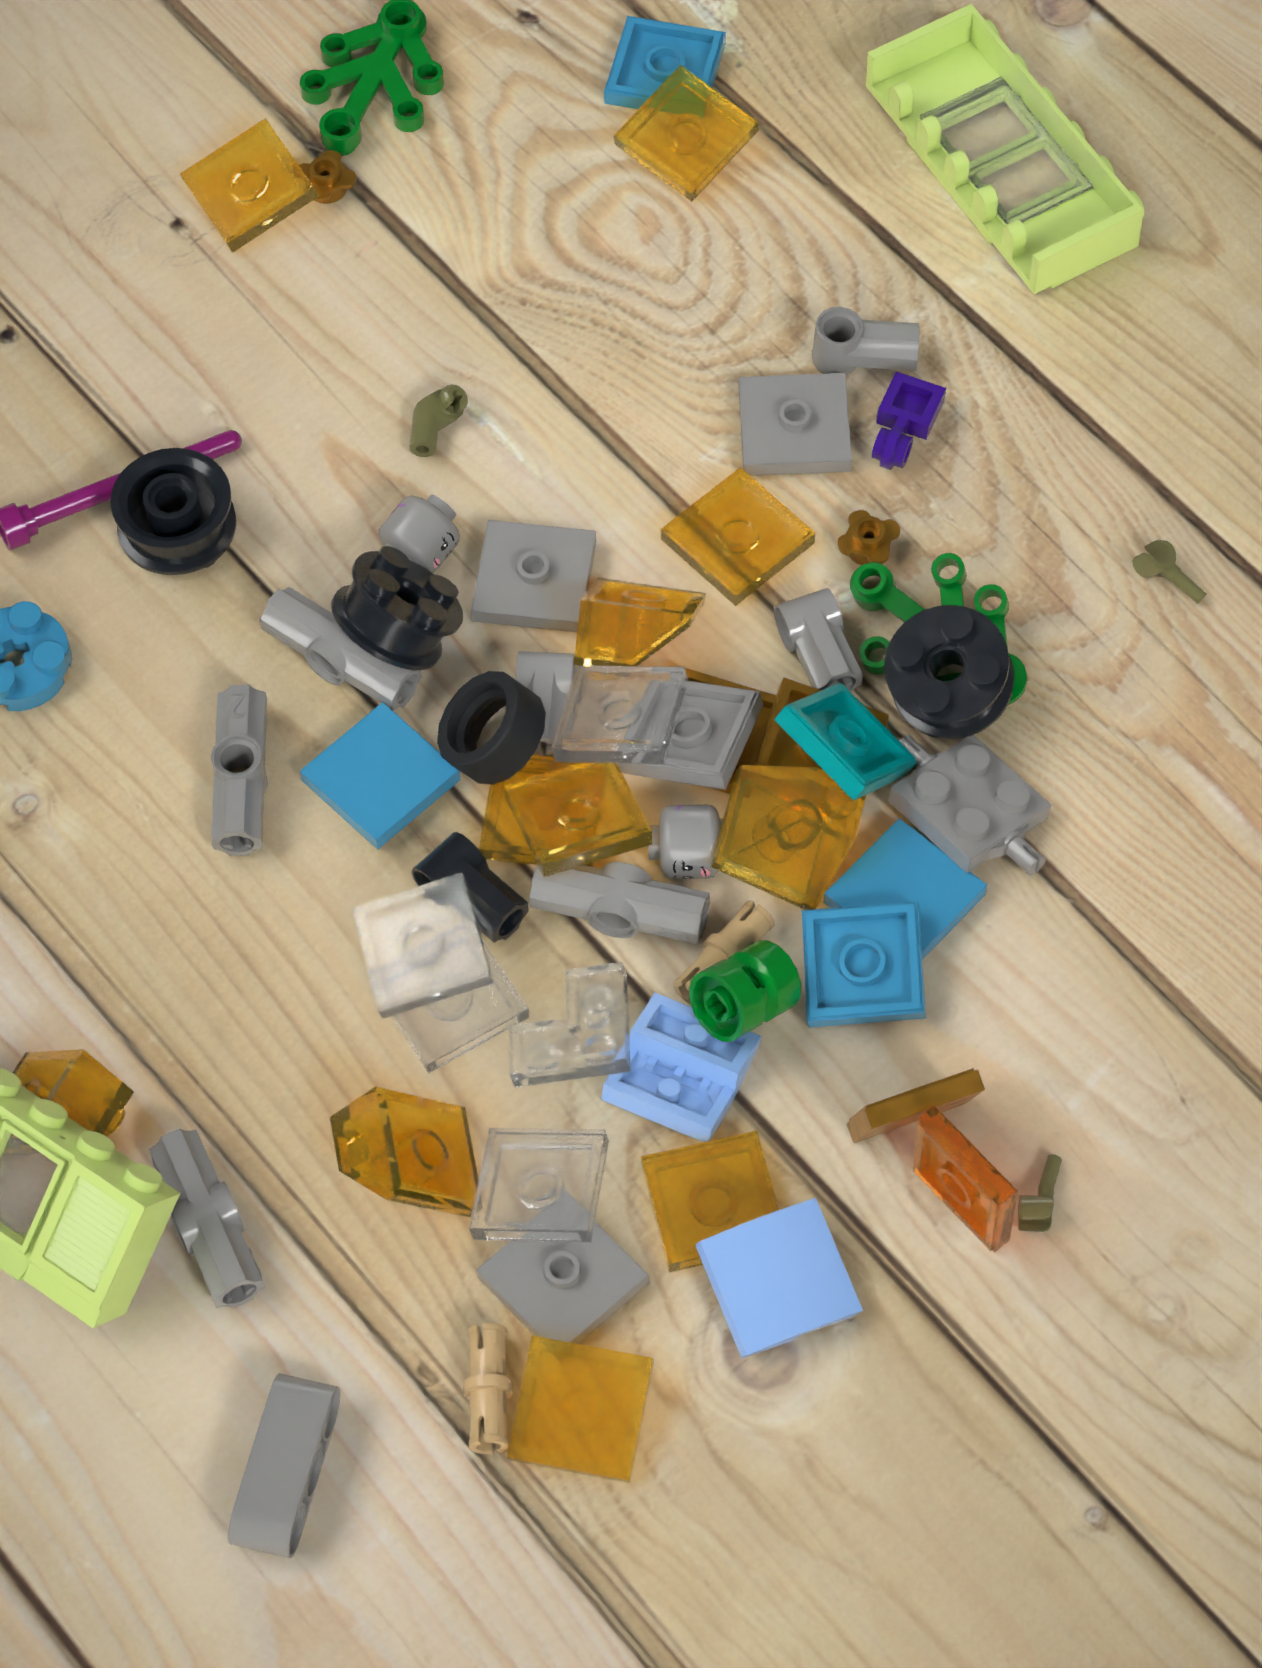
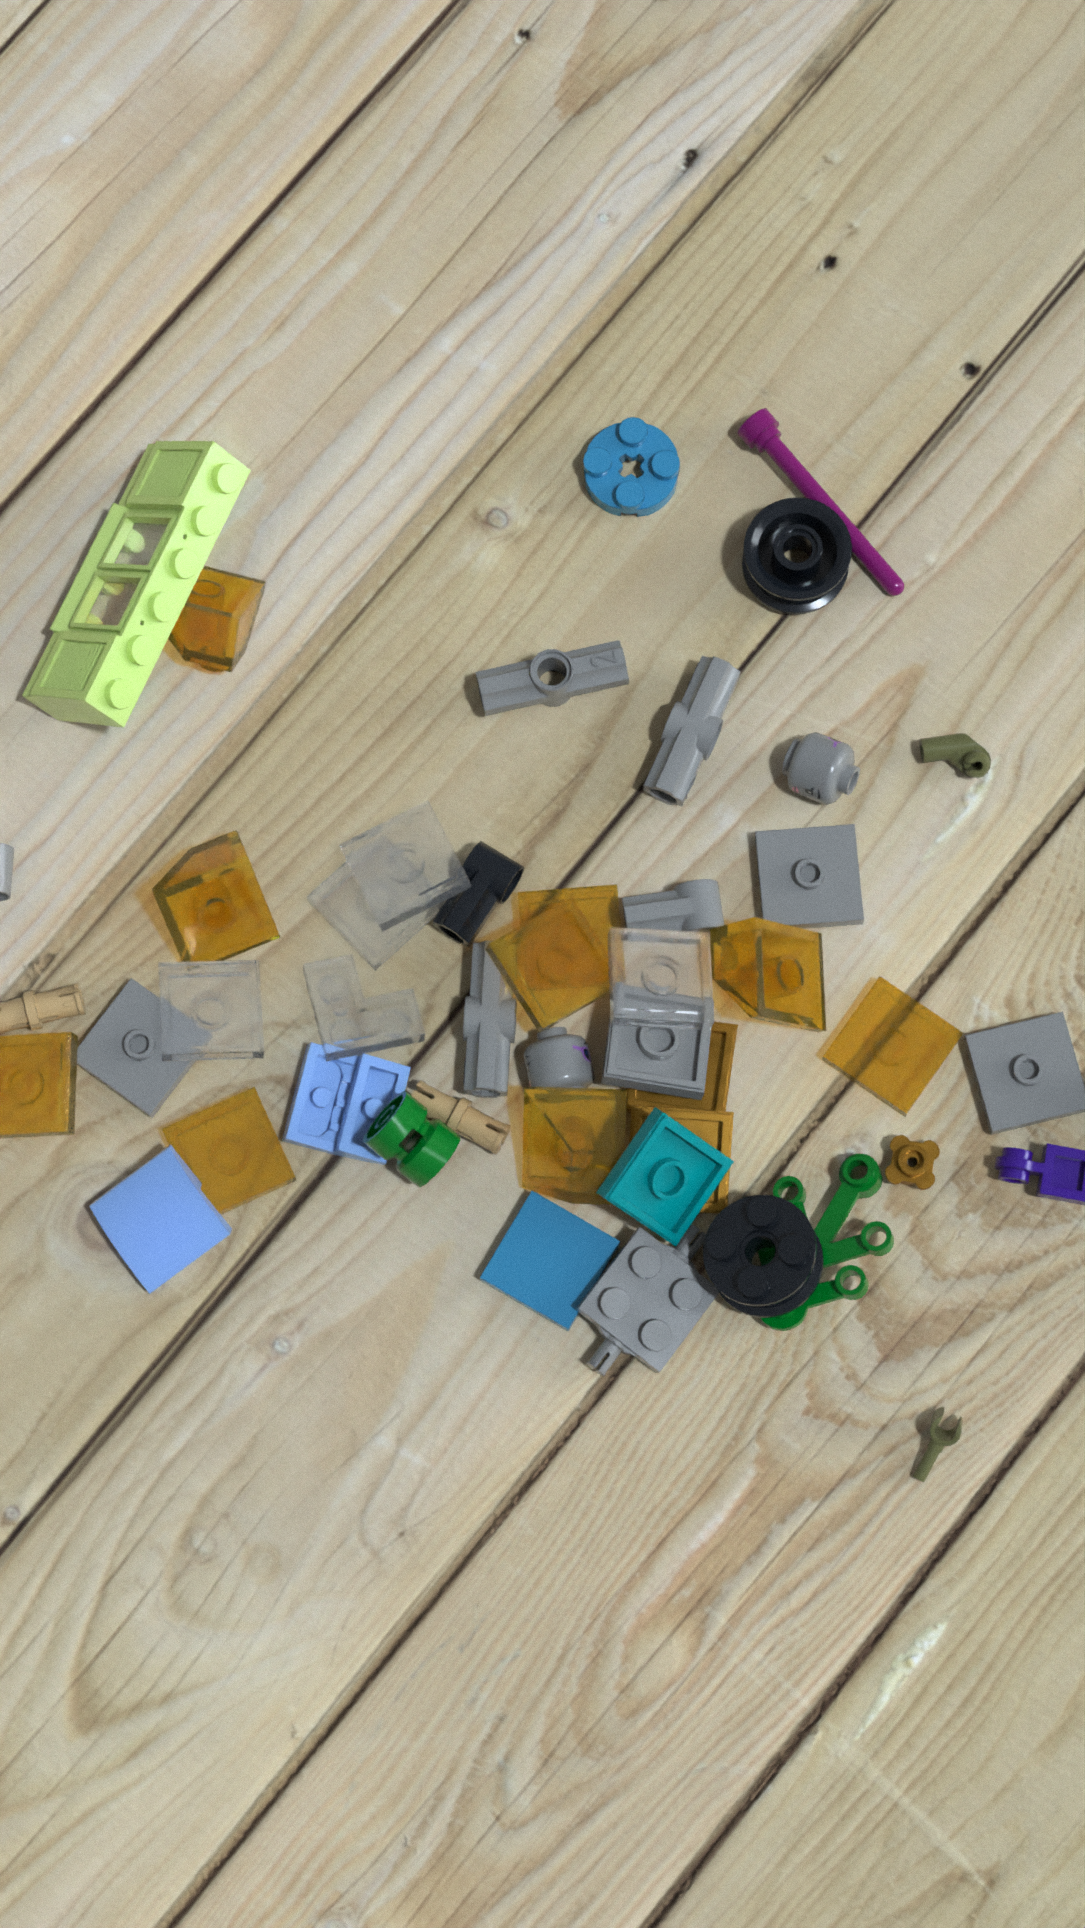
camera: 80 degrees right, 15 degrees up
(207, 1219) = (137, 757): light grey piece -> none
(380, 775) = (577, 795): dark azure tile -> none
(397, 609) = (750, 770): black wheel -> none
(513, 741) = (626, 895): black tyre -> none
(815, 631) = (797, 1131): light grey piece -> none
(863, 964) = (467, 1236): dark azure tile -> none
(910, 1105) = (324, 1300): pearl gold tile -> none
(964, 1179) = (263, 1352): clear orange tile -> none
(1036, 1211) = (266, 1424): olive hand -> none

